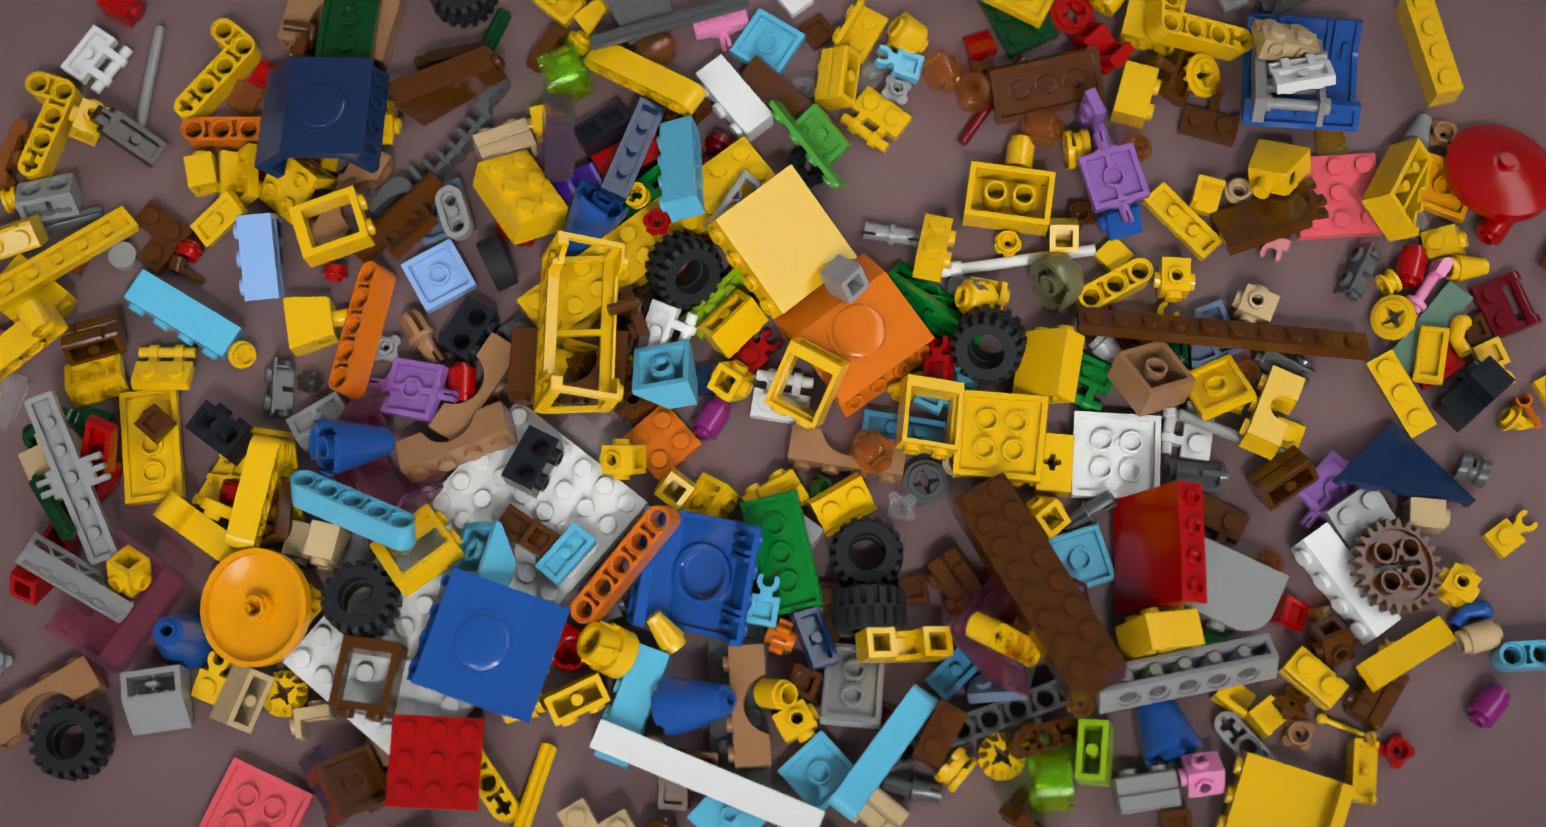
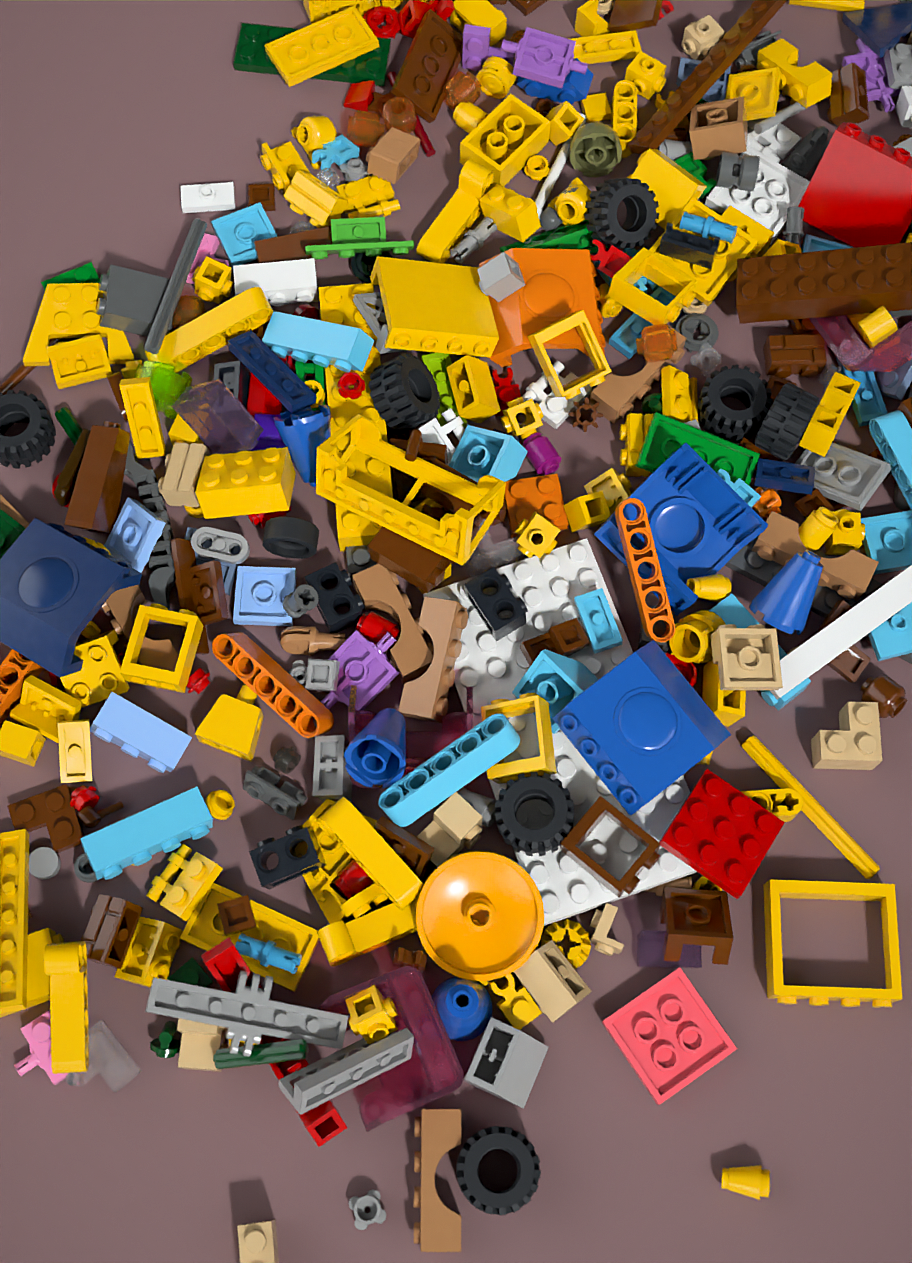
camera: 65 degrees left, 5 degrees down
(139, 465) = (268, 953): none -> dark azure pin
(195, 575) = (410, 958): none -> reddish brown plate
(392, 363) = (322, 675): none -> light grey tile
(421, 141) = (134, 534): none -> light blue plate
(439, 313) = (301, 600): none -> dark grey bush
(525, 78) = (143, 417): none -> yellow plate
(600, 696) = (747, 657): none -> tan plate
(696, 38) = (212, 280): none -> yellow brick
(779, 430) = (593, 414): none -> reddish brown gear
(901, 205) = (458, 213): none -> yellow beam
(927, 112) = (392, 155): none -> medium nougat brick
(992, 422) = (689, 247): none -> black hinge
(1020, 428) = (708, 227): none -> dark azure pin
(1112, 431) = (746, 173): none -> dark grey wheel

